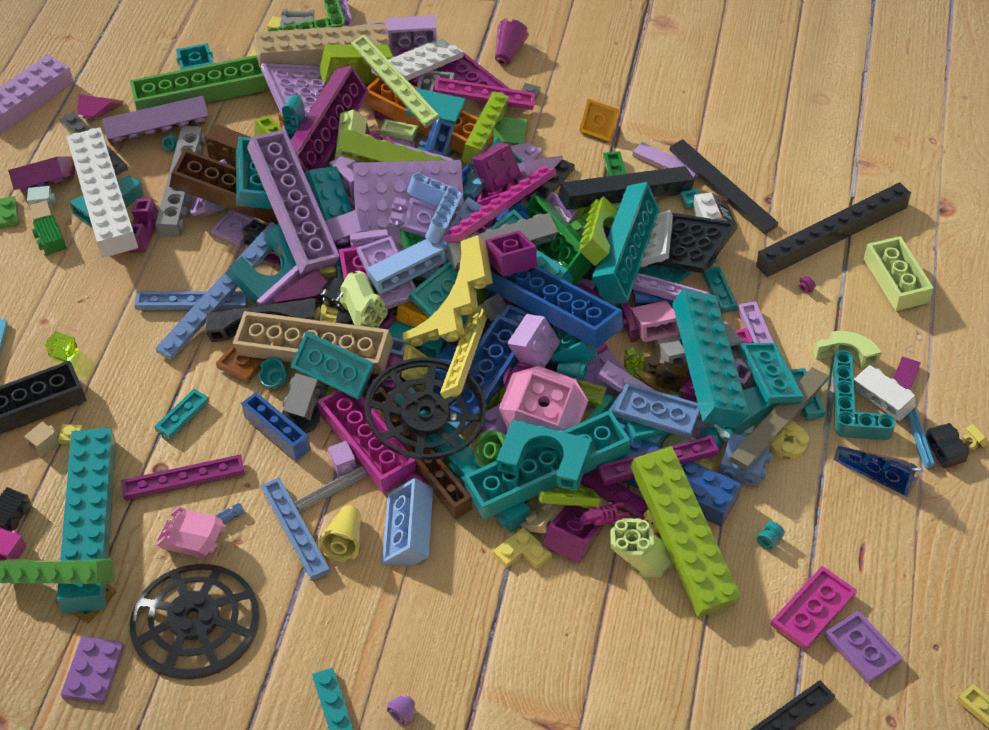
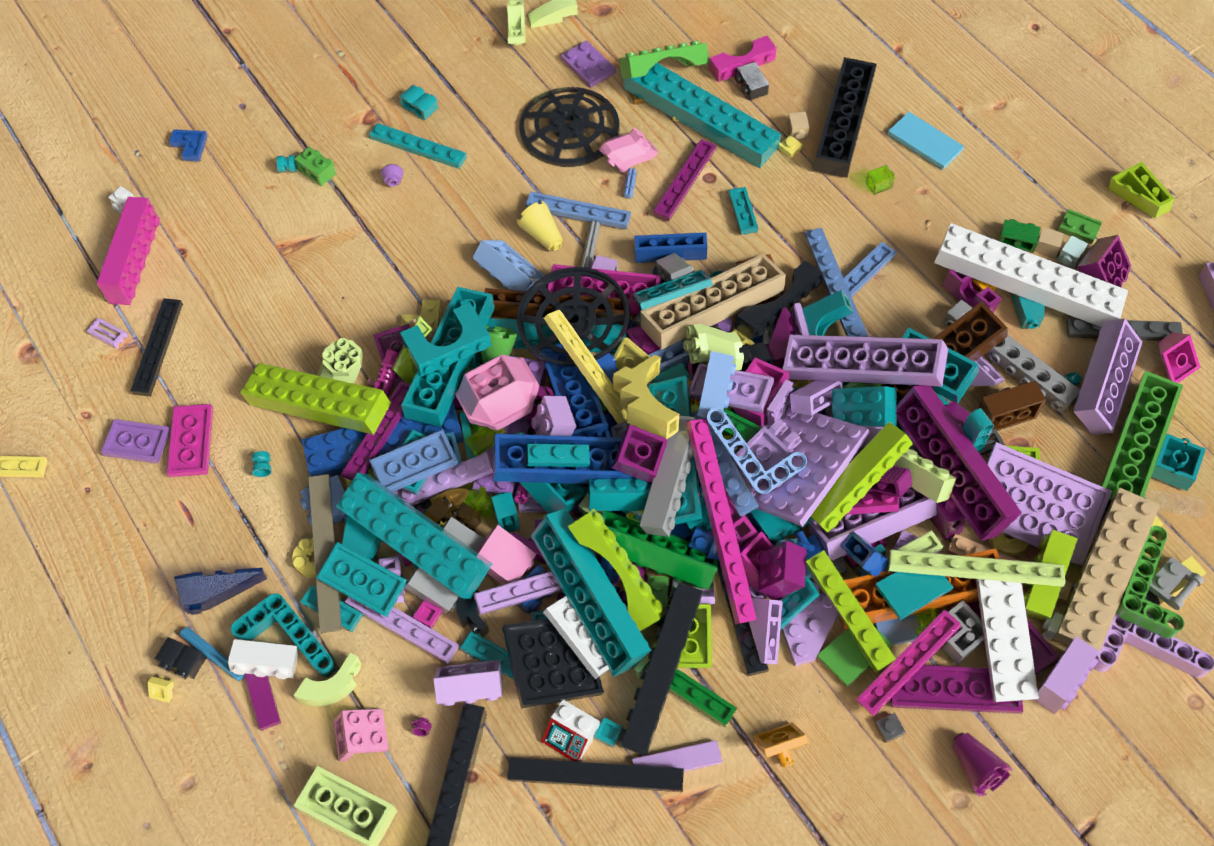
camera: 135 degrees right, 10 degrees up
(566, 292) = (558, 455): none -> teal plate
(623, 340) = (506, 511): none -> teal brick
(754, 271) = (468, 682): none -> lavender brick
(857, 306) = (360, 732): none -> bright pink bracket

